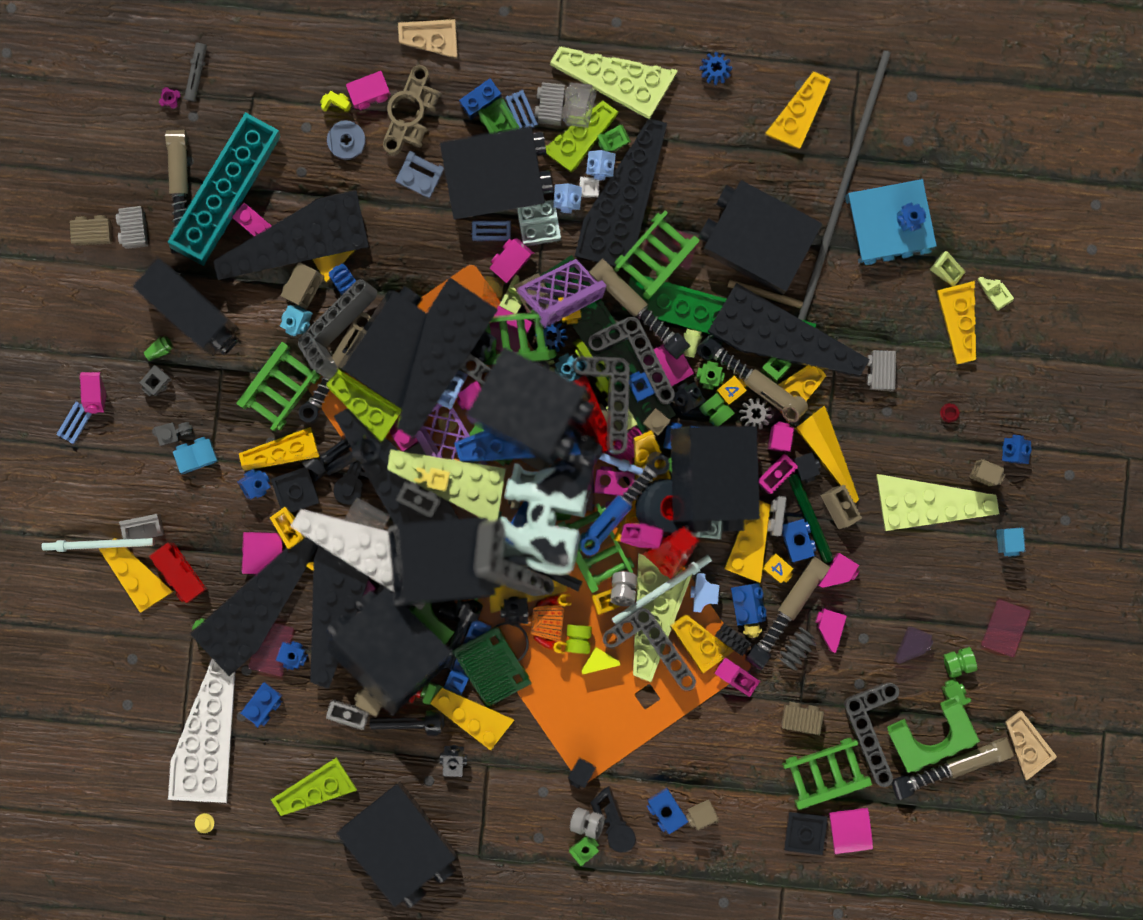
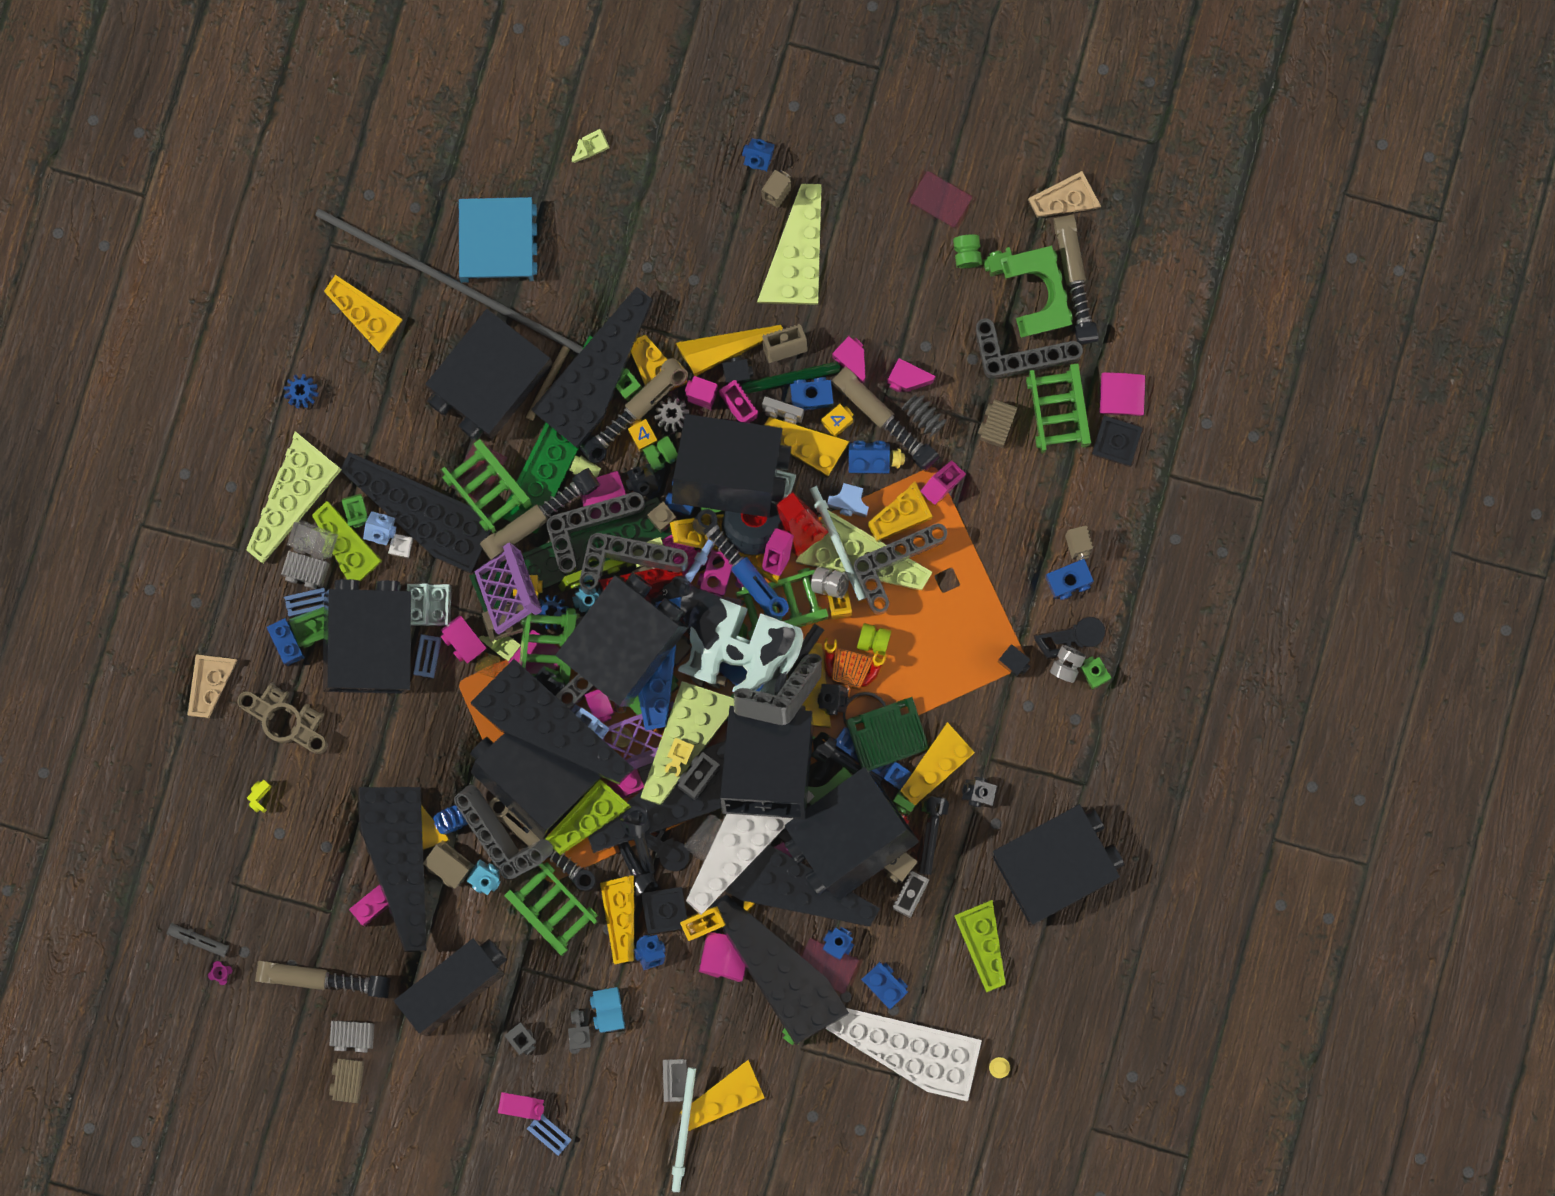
camera: 70 degrees left, 5 degrees down
(159, 348) = (486, 1029): bright green cone -> none
(178, 572) = (730, 1049): red wedge -> none
(224, 189) = (330, 927): teal brick -> none
(338, 132) = (310, 784): sand blue plate -> none
(368, 90) = (253, 759): dark pink brick -> none
(416, 180) = (359, 724): sand blue plate -> none
(567, 197) = (408, 569): light blue brick -> none
(598, 661) = (900, 622): neon yellow slope -> none
(647, 390) = (624, 520): blue brick -> none
(707, 382) = (623, 461): bright green brick -> none
(733, 639) = (902, 479): black tyre -> none
(882, 370) = (650, 276): light grey brick -> none
(904, 217) = (498, 223): blue brick -> none
(913, 644) = (941, 296): clear purple slope -> none
(948, 269) = (556, 190): yellowish green slope -> none
(949, 412) = (707, 216): dark red plate -> none
(959, 316) = (604, 187): yellow wing -> none
(1010, 541) = (851, 177): dark azure brick -> none

